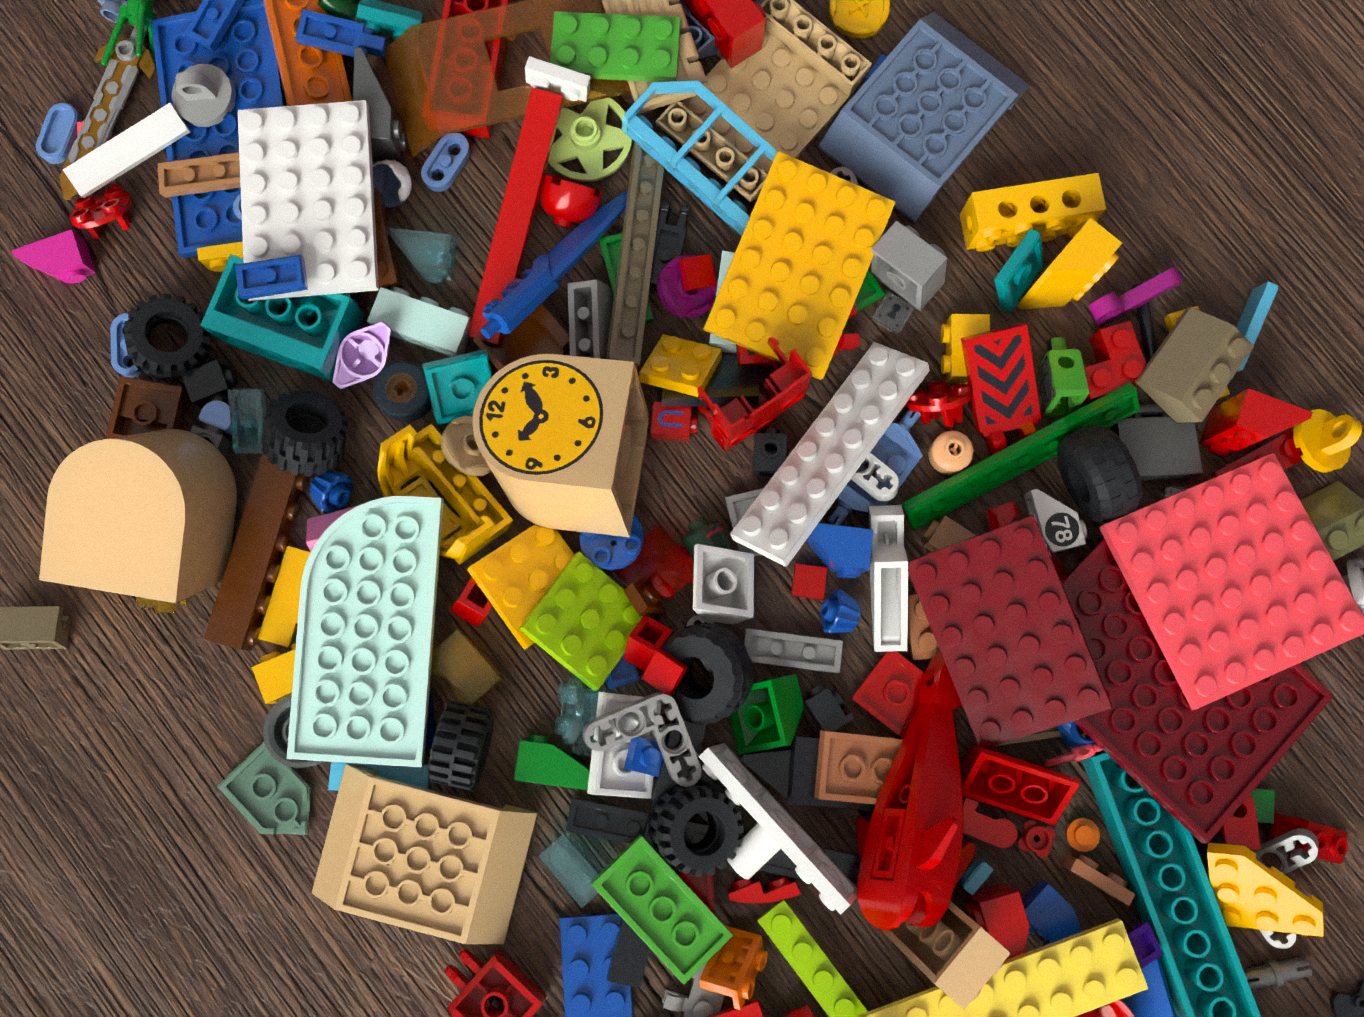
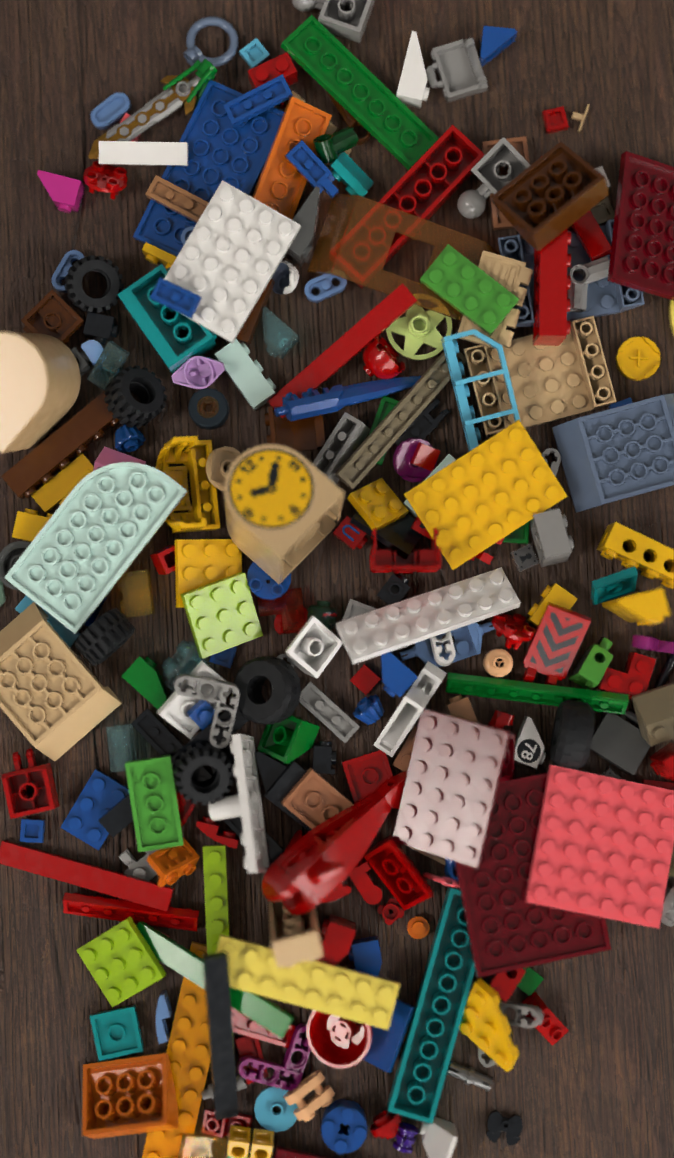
camera: 35 degrees right, 5 degrees up
(203, 95) = (210, 149): light grey tile -> none
(456, 384) = (242, 428): teal tile -> none
(555, 78) = (425, 294): white plate -> none
(644, 642) = (247, 651): red brick -> none
(645, 600) = (263, 626): reddish brown plate -> none
(664, 672) = (245, 675): red tile -> none
(975, 876) = (340, 907): medium azure tile -> none
(1111, 884) = (414, 965): nougat plate -> none
(1144, 944) = (404, 1006): dark purple tile -> none

